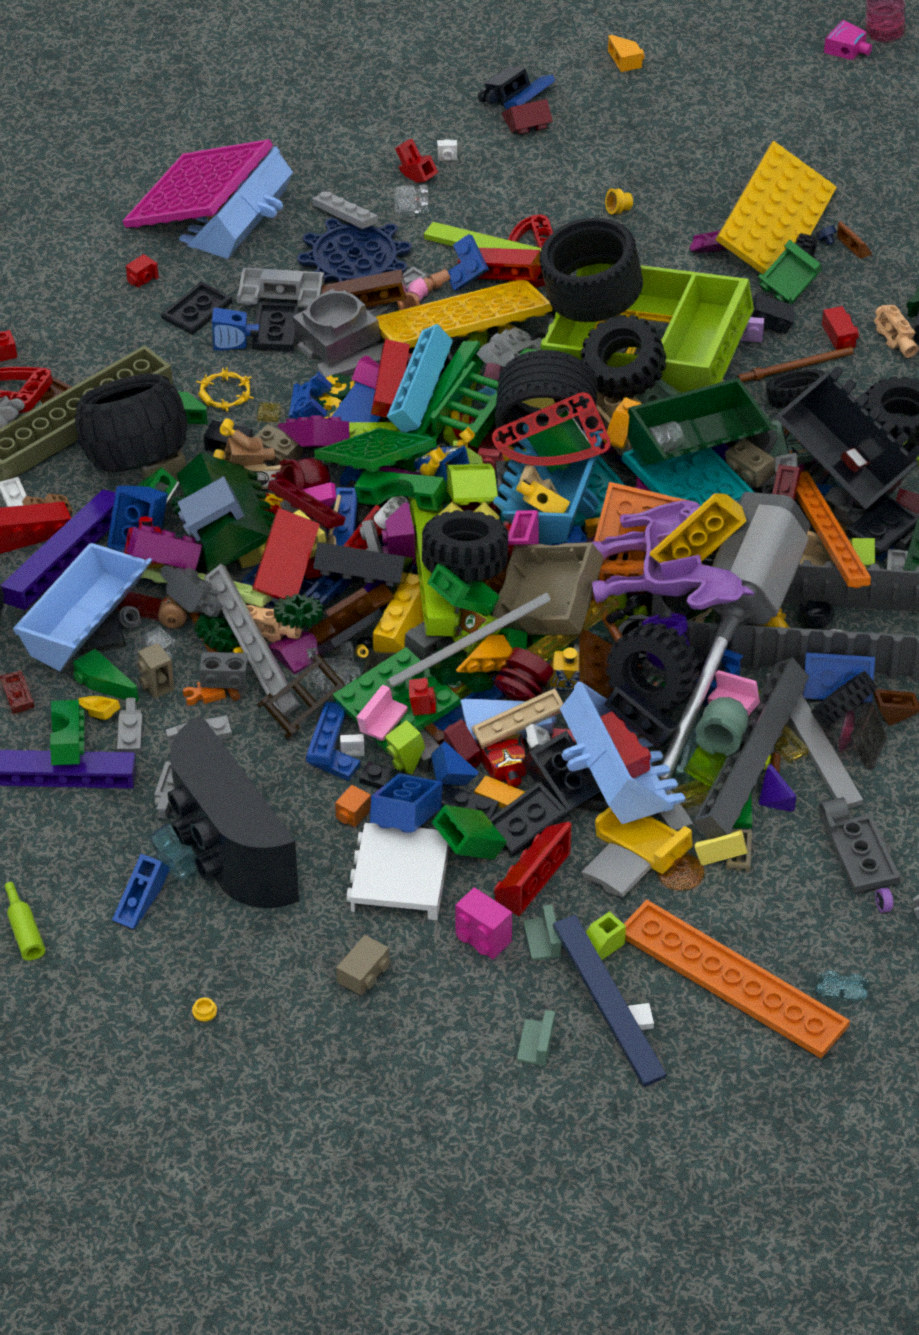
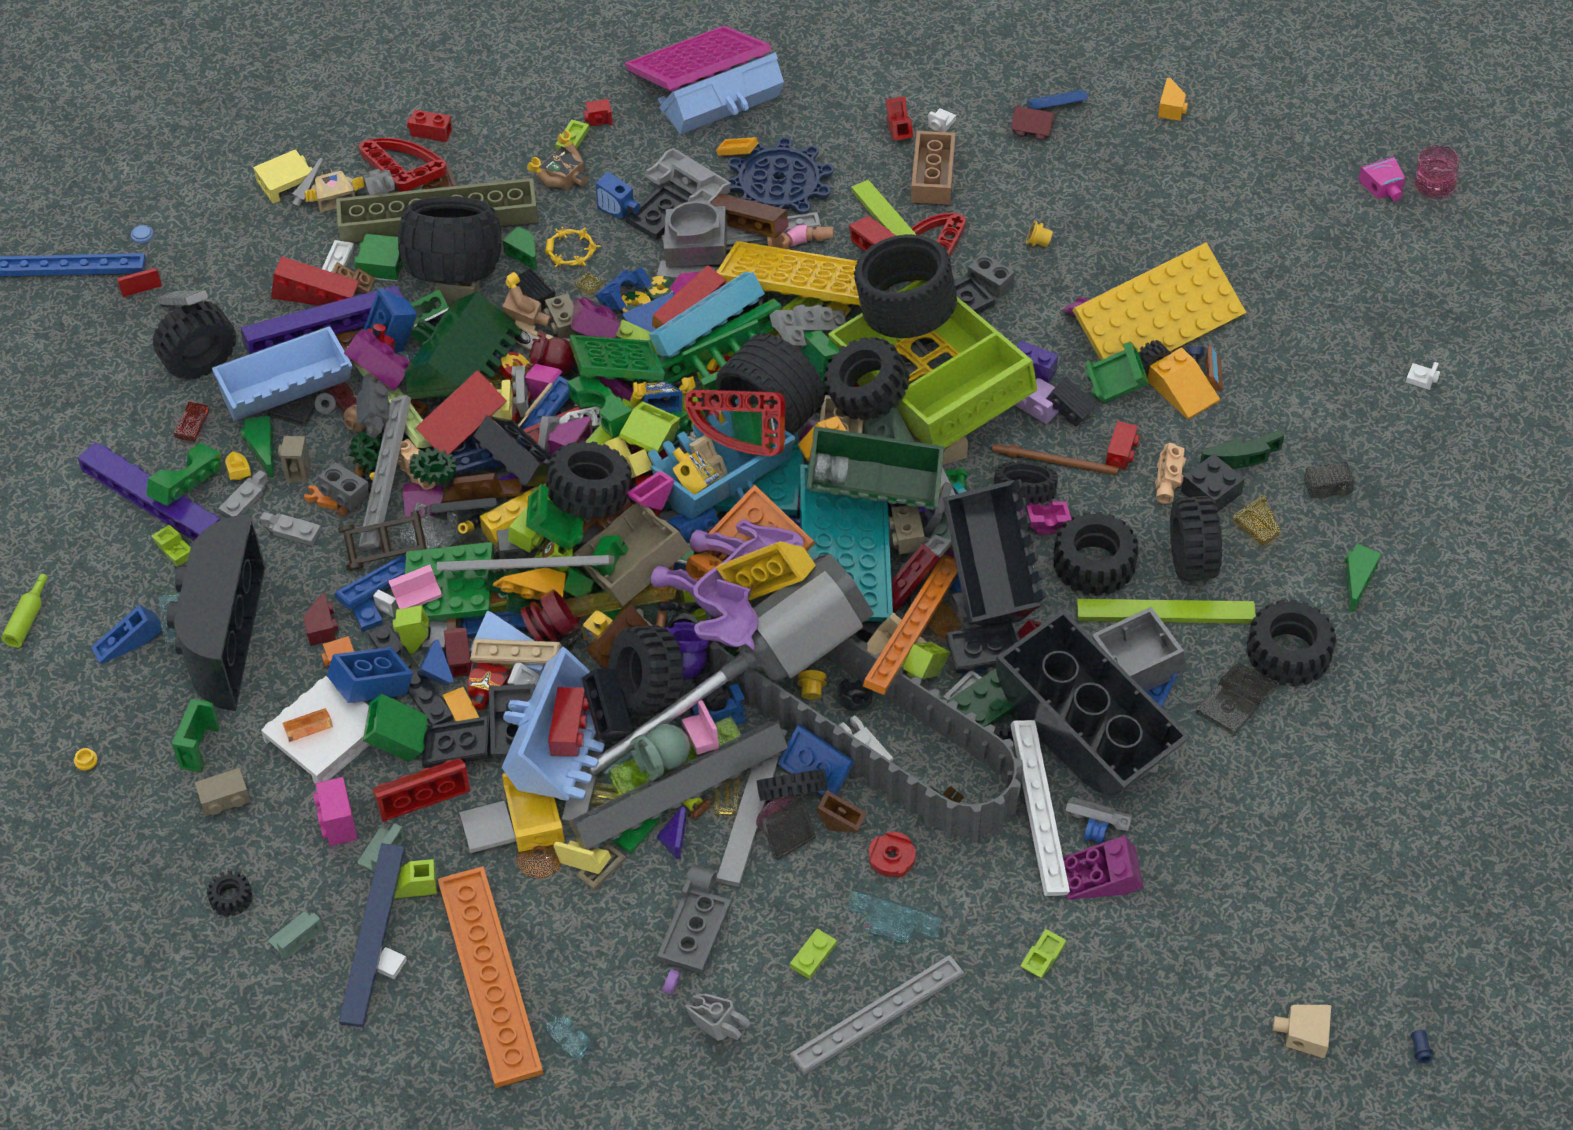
camera: 35 degrees right, 5 degrees up
(59, 474) = (379, 257): none -> green piece
(101, 800) = (172, 545): none -> lime slope
(135, 301) = (578, 132): none -> lime plate
(154, 327) = (562, 167): none -> torso
(160, 636) = (323, 439): clear brick -> none
(196, 308) = (622, 163): black tile -> none
(208, 506) = (430, 339): sand blue panel -> none
(295, 243) = (737, 146): none -> light orange tile
(301, 500) = (520, 377): dark red plate -> none
(302, 946) = (197, 719): none -> green panel
(309, 790) = (318, 622): none -> dark red slope
(345, 210) = (803, 135): light grey plate -> none
(390, 869) = (307, 724): none -> clear orange slope
(405, 201) = (867, 152): clear plate -> none
(422, 697) = (452, 591): red brick -> none
(448, 1052) = (225, 882): none -> black tyre
(471, 264) = (854, 233): blue plate -> none
(482, 187) = (933, 167): none -> medium nougat brick
(504, 85) = (1038, 84): black hinge -> none
(520, 595) = (611, 546): none -> green leg
(843, 260) = (1182, 383): none -> light orange slope
(854, 459) = (997, 573): tile -> none

